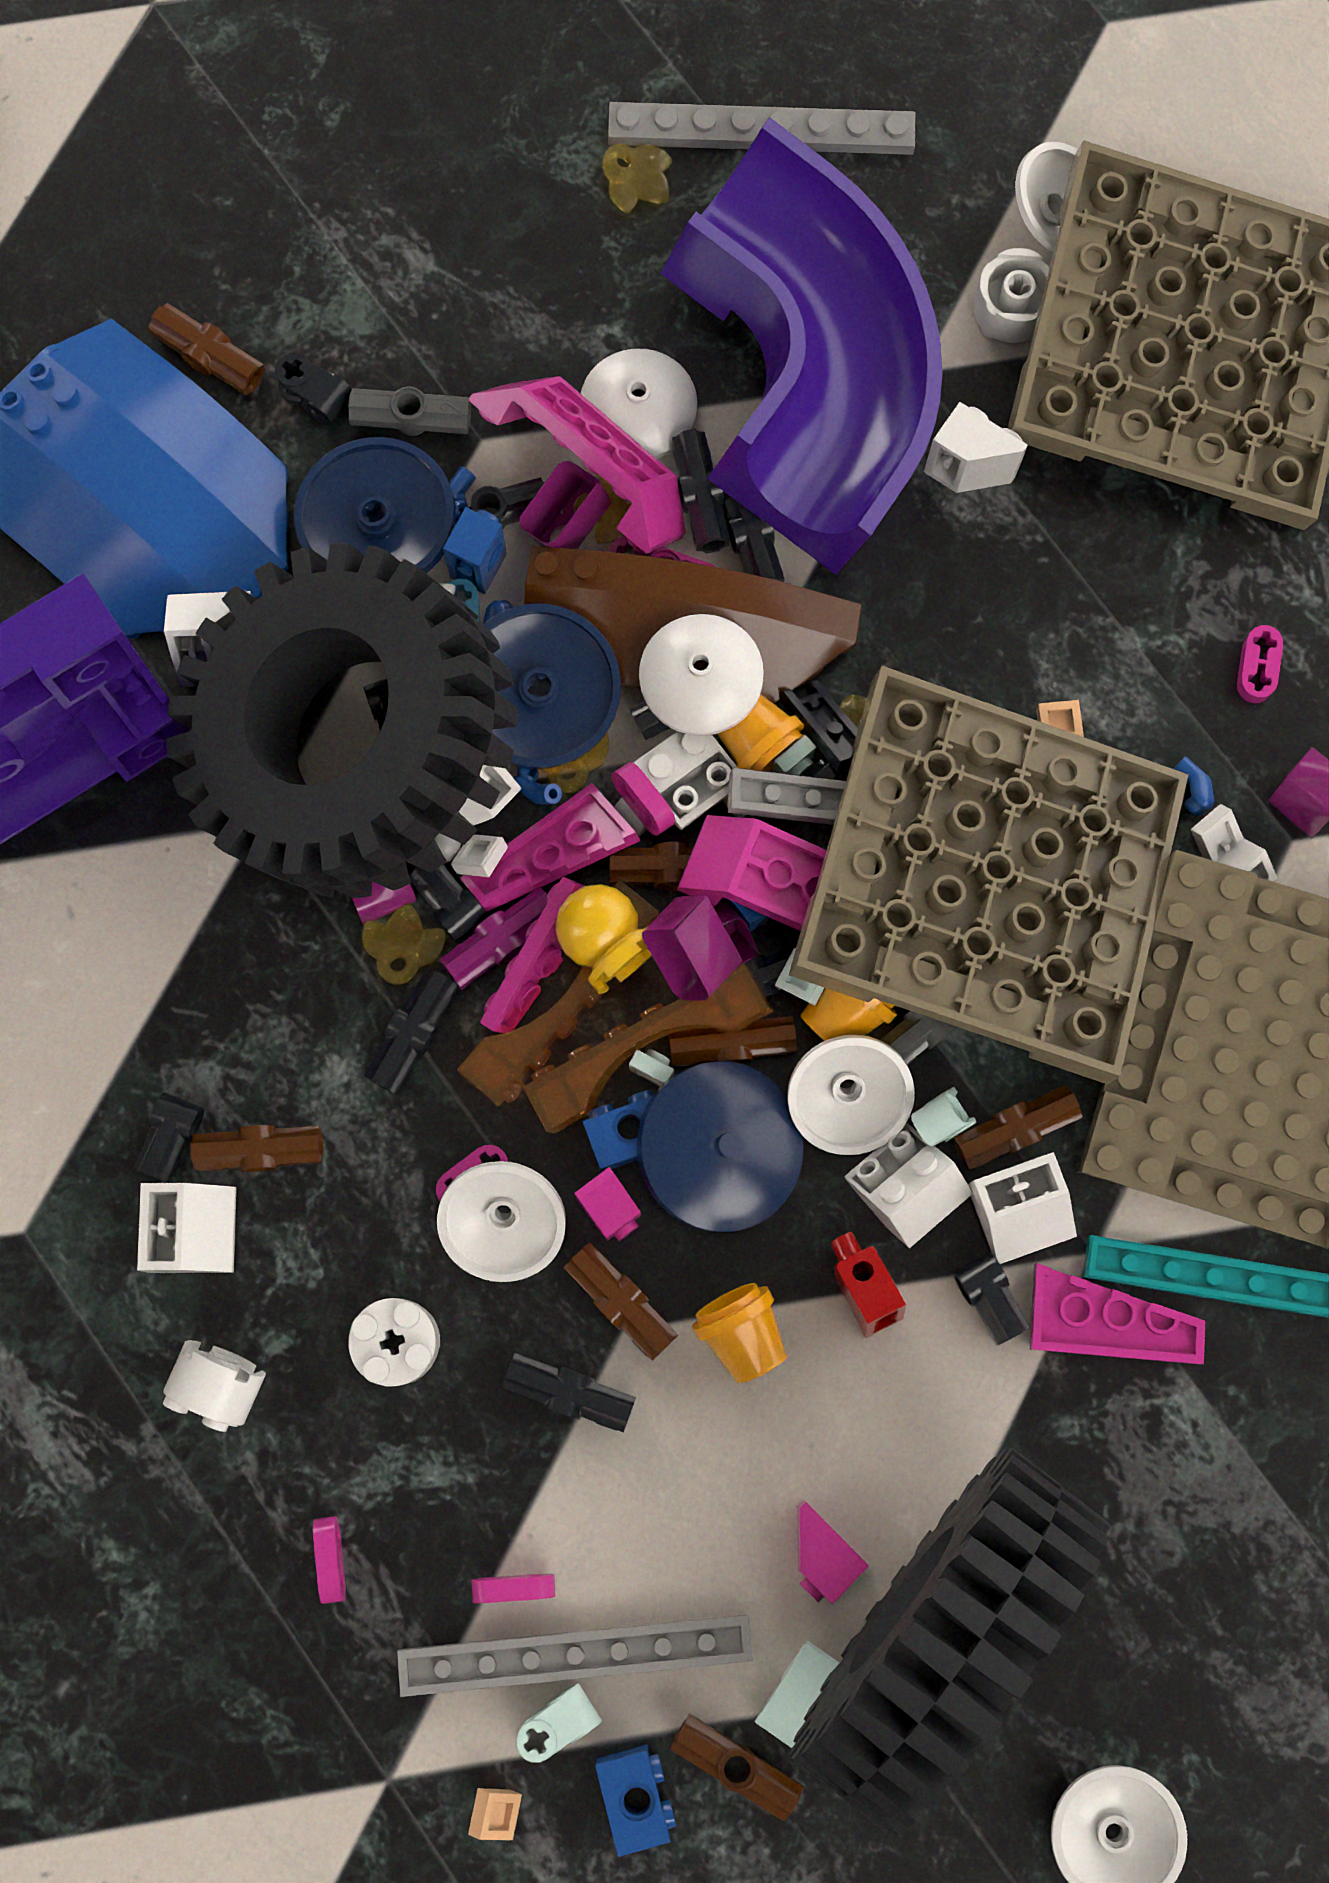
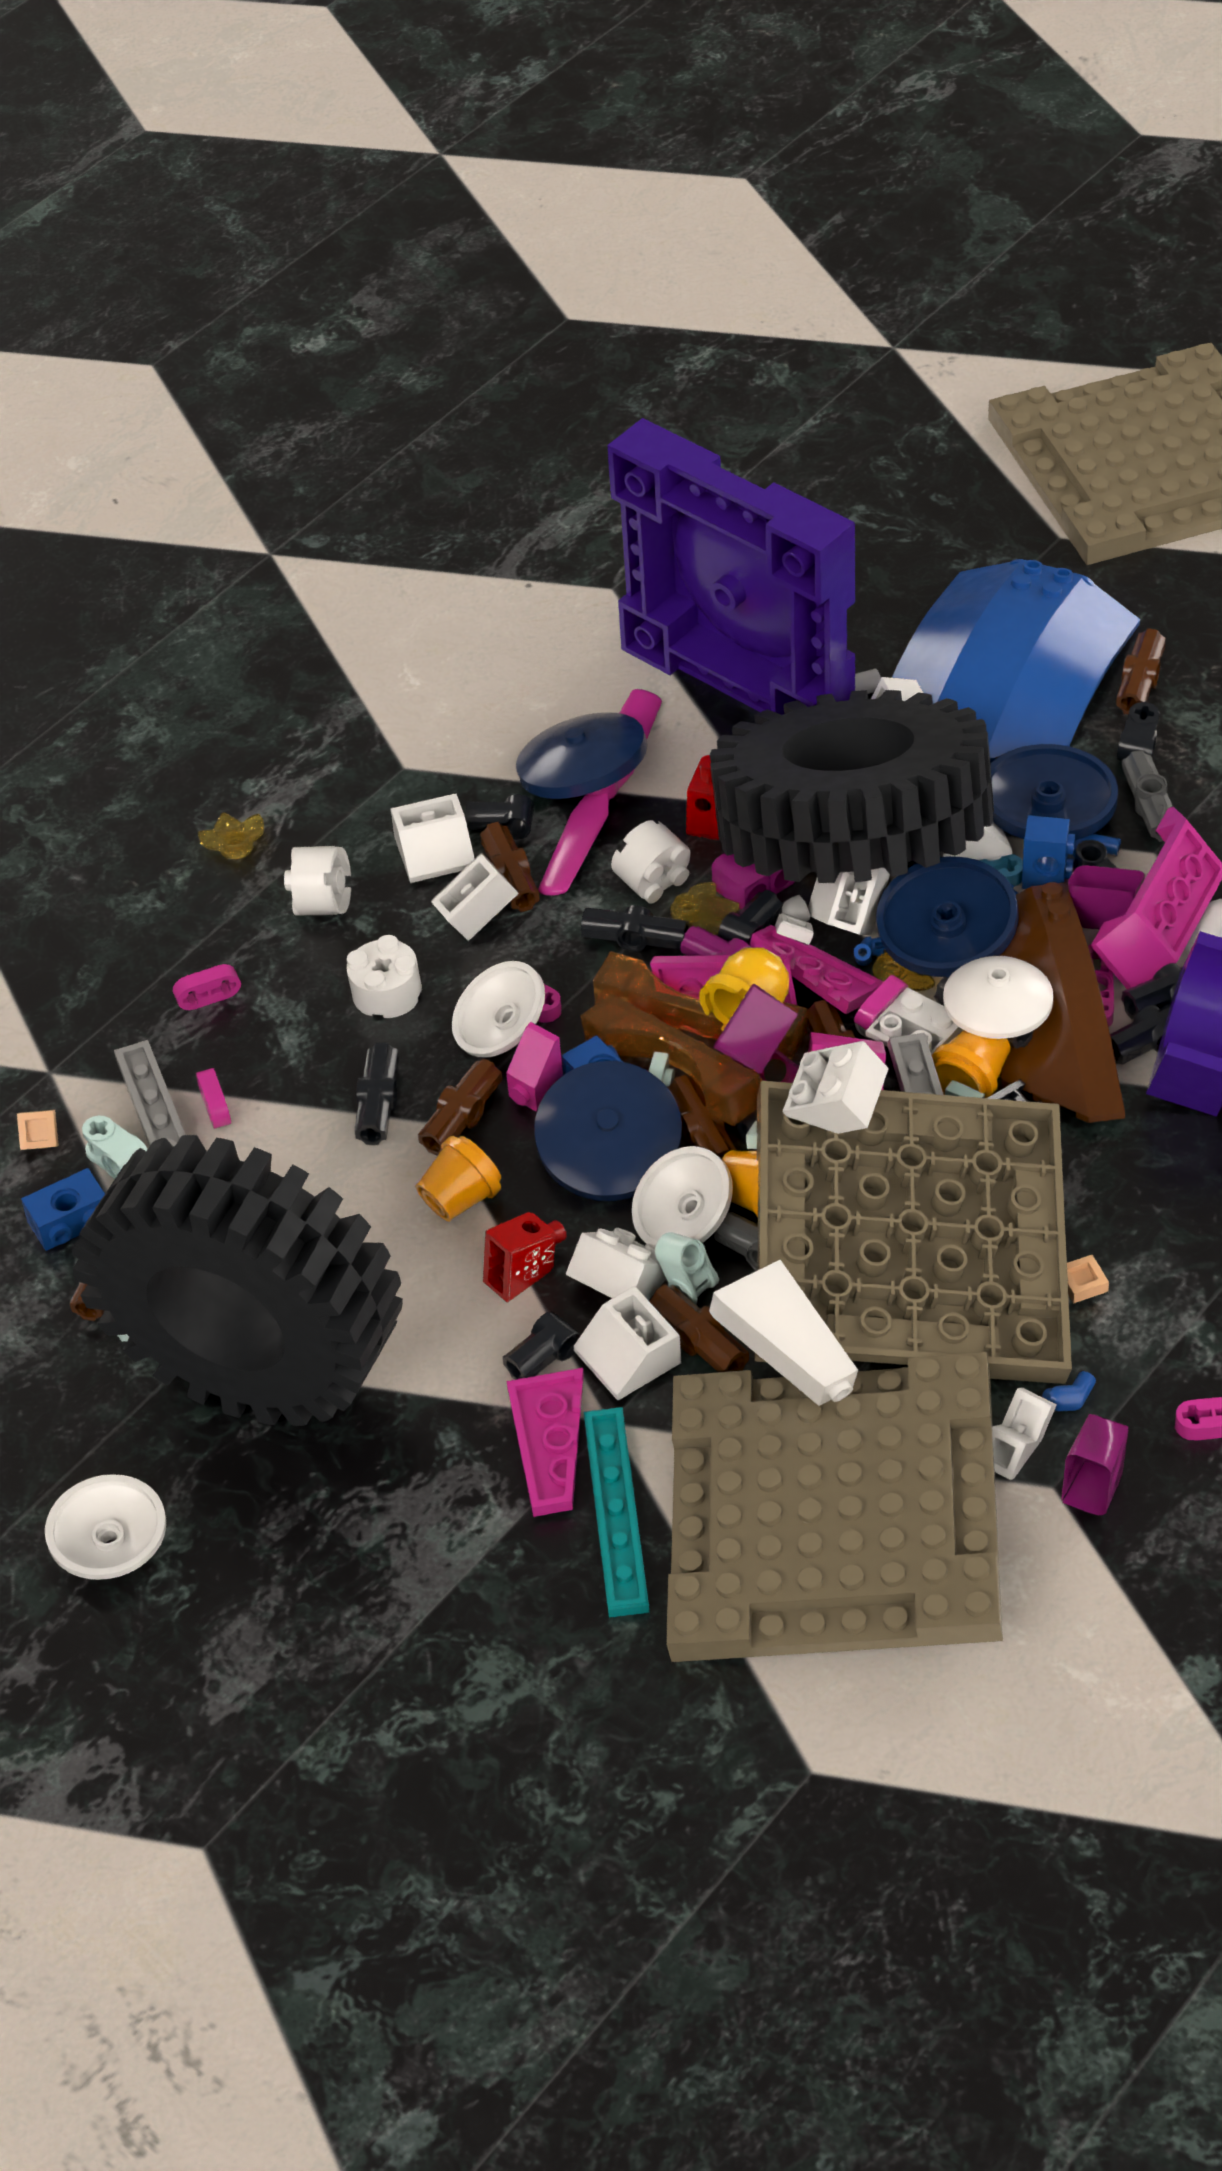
camera: 80 degrees right, 30 degrees down
(66, 1473) = (233, 837): none -> clear yellow plate
(111, 1014) = (581, 755): none -> dark blue dish
(198, 1029) = (593, 809): none -> dark pink piece
(241, 886) = (699, 792): none -> red torso
(300, 1207) = (474, 896): none -> white slope
(325, 982) = (652, 860): none -> white brick
(839, 890) = (837, 1087): none -> white slope
(1118, 1044) = (786, 1331): none -> white slope

